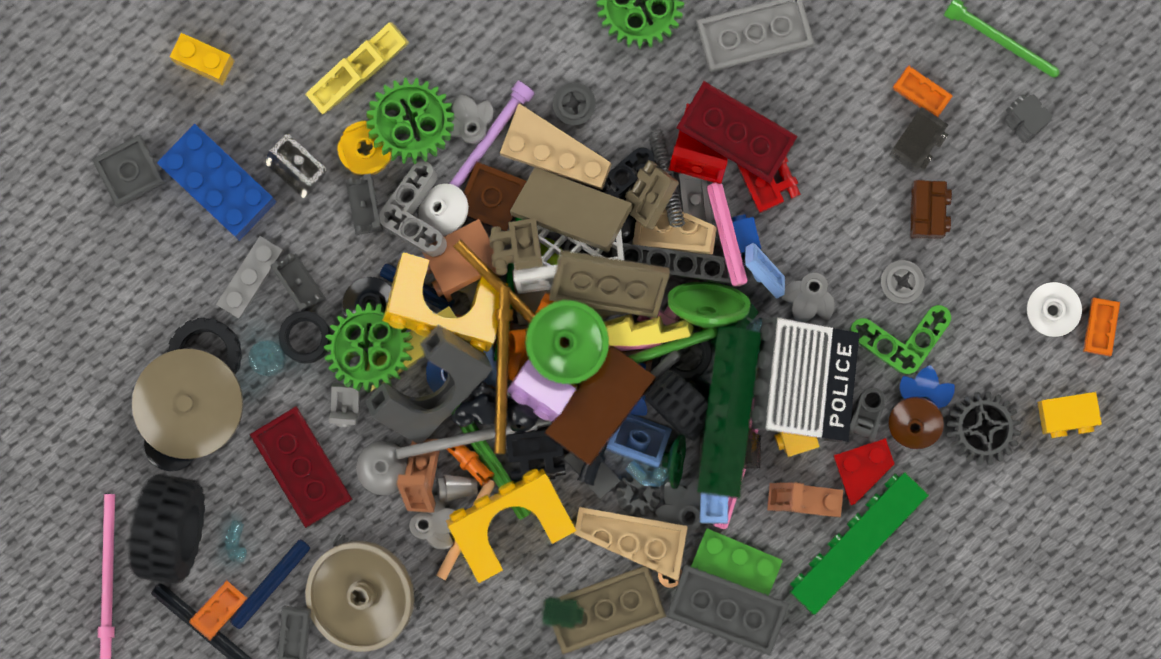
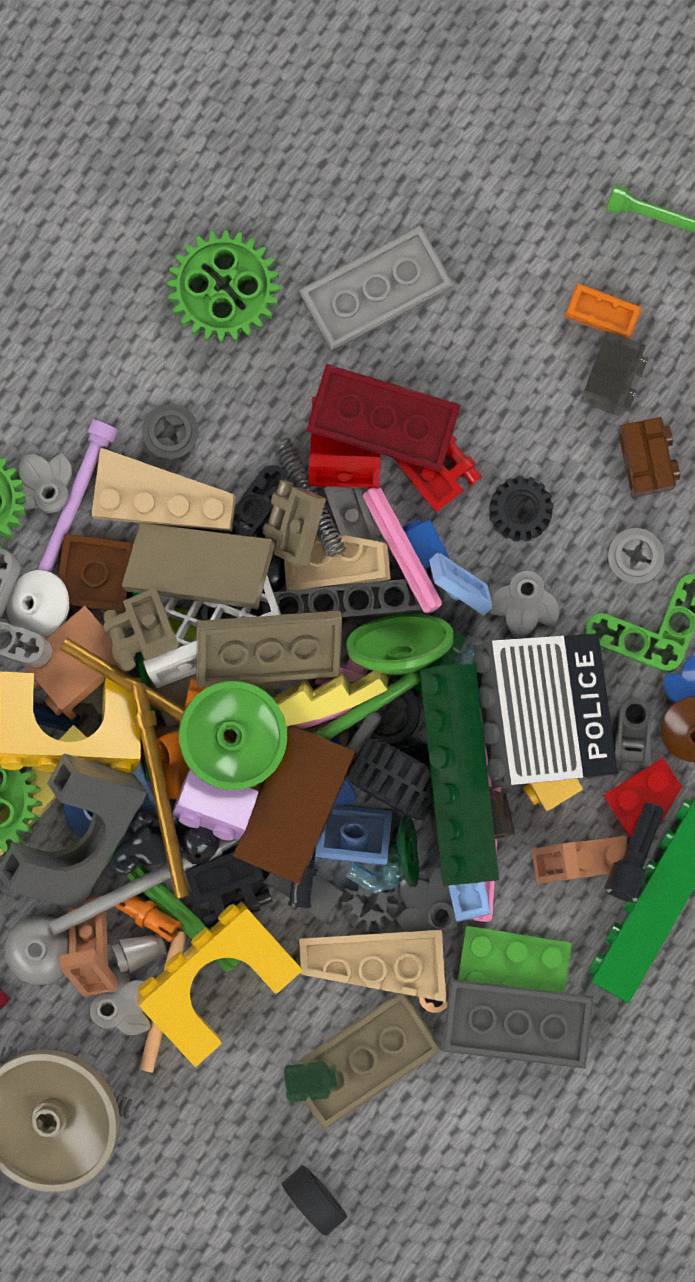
camera: 15 degrees left, 0 degrees up
(824, 209) = (533, 491): none -> black tyre
(837, 519) = (627, 875): none -> black piece

